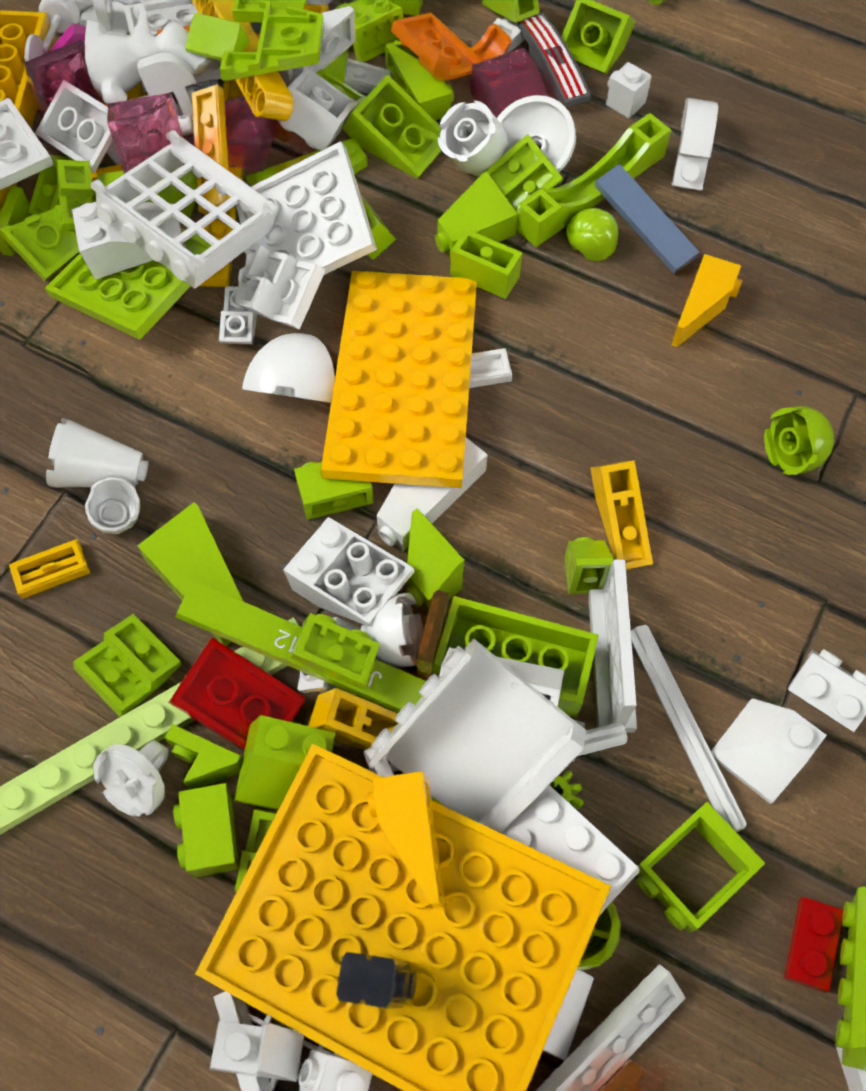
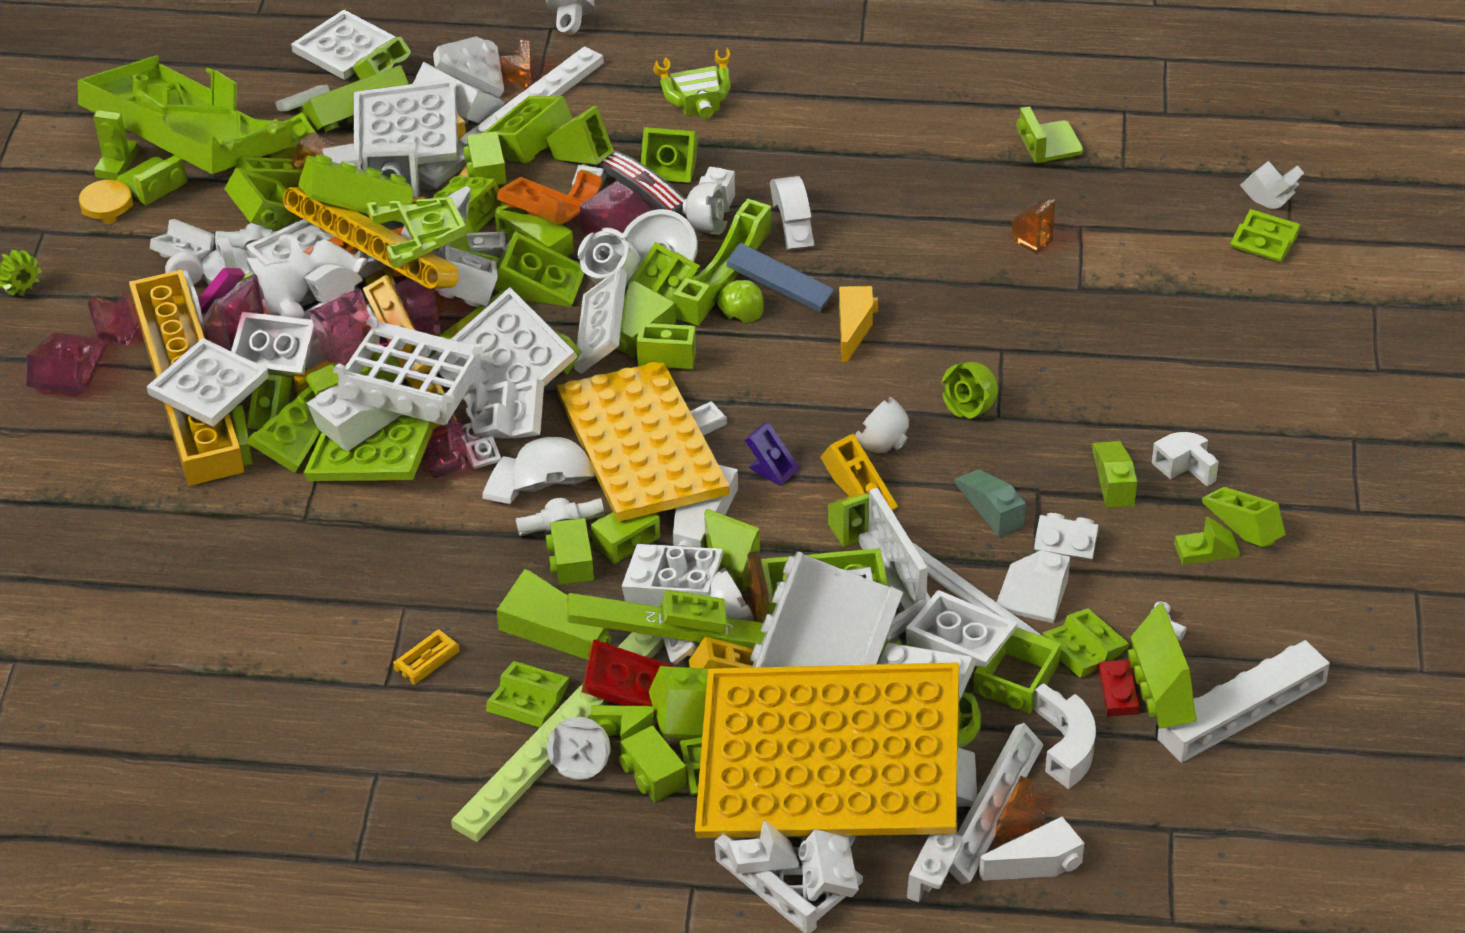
camera: 20 degrees left, 20 degrees down
(73, 188) = (296, 392): lime slope -> none
(87, 457) = (422, 570): white cone -> none
(112, 505) = (457, 595): white hair -> none
(199, 310) = (447, 449): none -> clear pink bracket
(213, 36) = (368, 239): lime slope -> none
(230, 376) = (501, 483): none -> white slope
(262, 491) = (571, 551): none -> lime brick
(273, 440) = (559, 510): none -> white pin
(375, 981) = (829, 759): black brick -> none
(407, 819) = (806, 679): yellow slope -> none
(431, 208) = (601, 320): none -> white tile
(536, 445) = (772, 456): none -> dark purple slope
(605, 108) = (706, 207): none -> white cylinder
(646, 797) = (959, 628): none -> white slope
(679, 458) = (884, 428): none -> white cylinder
(736, 1009) = (1073, 755): none -> white arch
(766, 600) = (994, 501): none -> sand green slope
(798, 855) = (1086, 642): none -> lime slope

